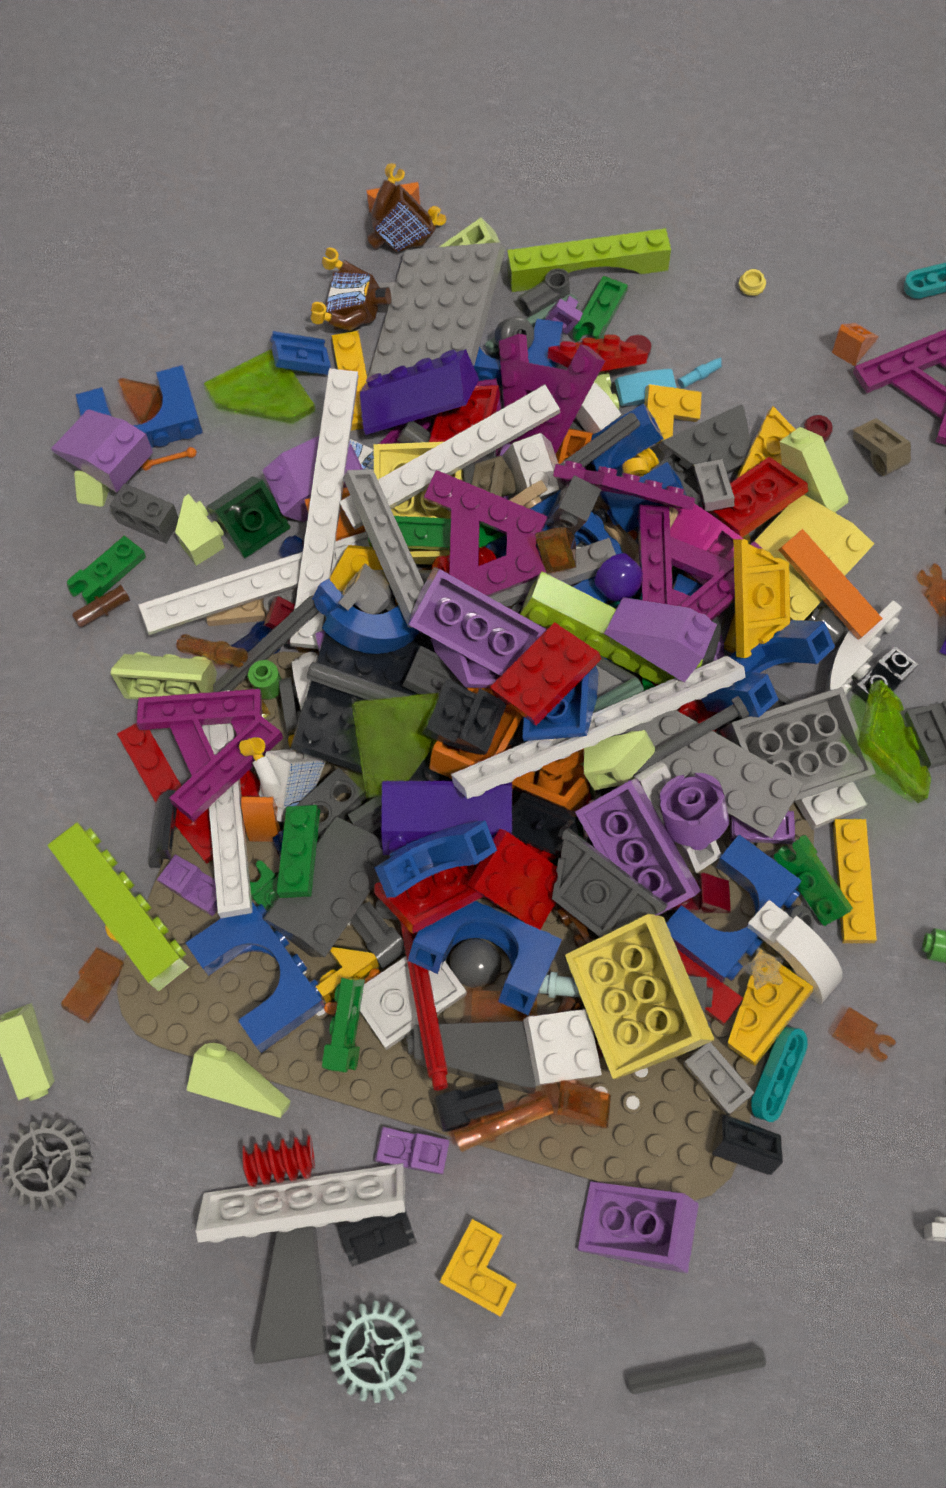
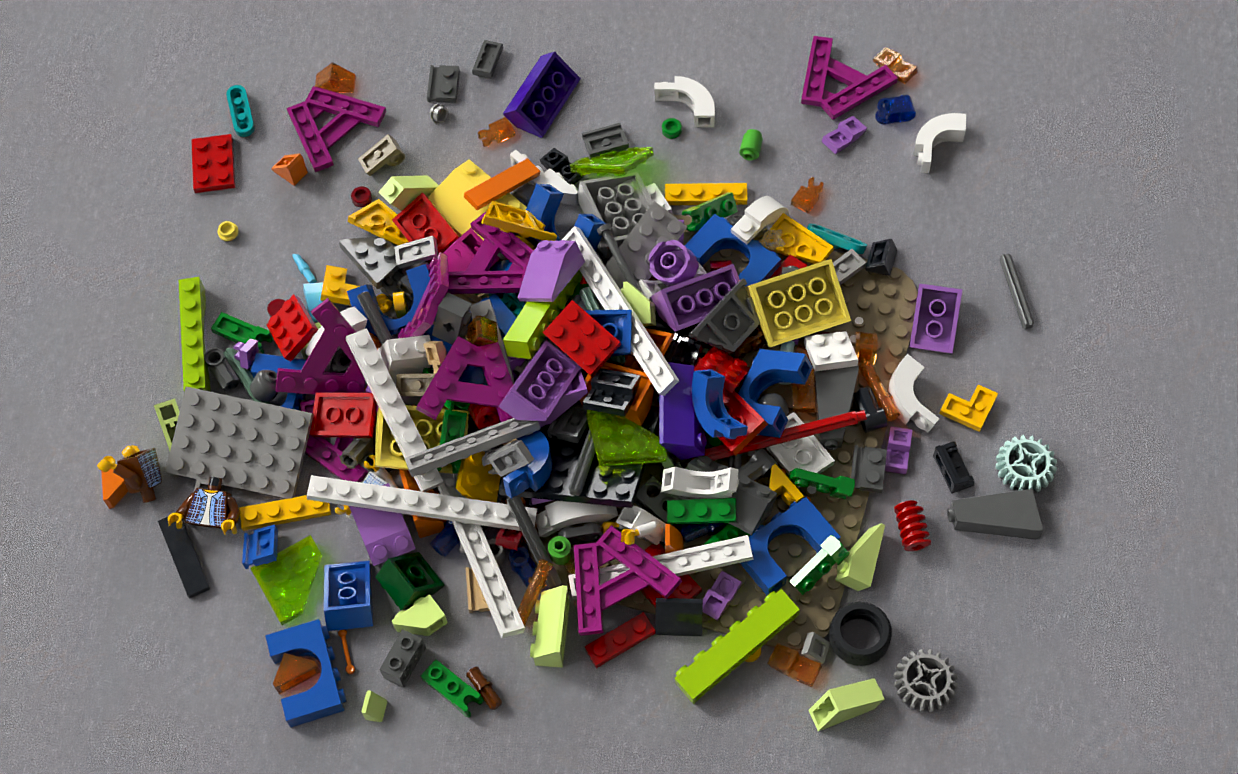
camera: 90 degrees left, 5 degrees down
(94, 1056) = (864, 611): none -> black tyre
(104, 448) = (345, 687): medium lavender slope -> none
(109, 1012) = (815, 647): none -> light grey plate
(230, 1028) = (831, 553): none -> green plate
(231, 449) = (348, 596): none -> blue slope
(292, 287) = (184, 558): none -> black tile
(302, 1203) = (939, 497): white plate -> none
(332, 841) = (700, 484): none -> white arch
(376, 1100) = (868, 468): none -> dark grey plate
(417, 391) = (319, 442): dark purple slope -> none
(508, 1157) = (904, 398): none -> white arch
(619, 577) = (504, 298): dark purple hair -> none
(858, 258) = (213, 163): none -> red plate

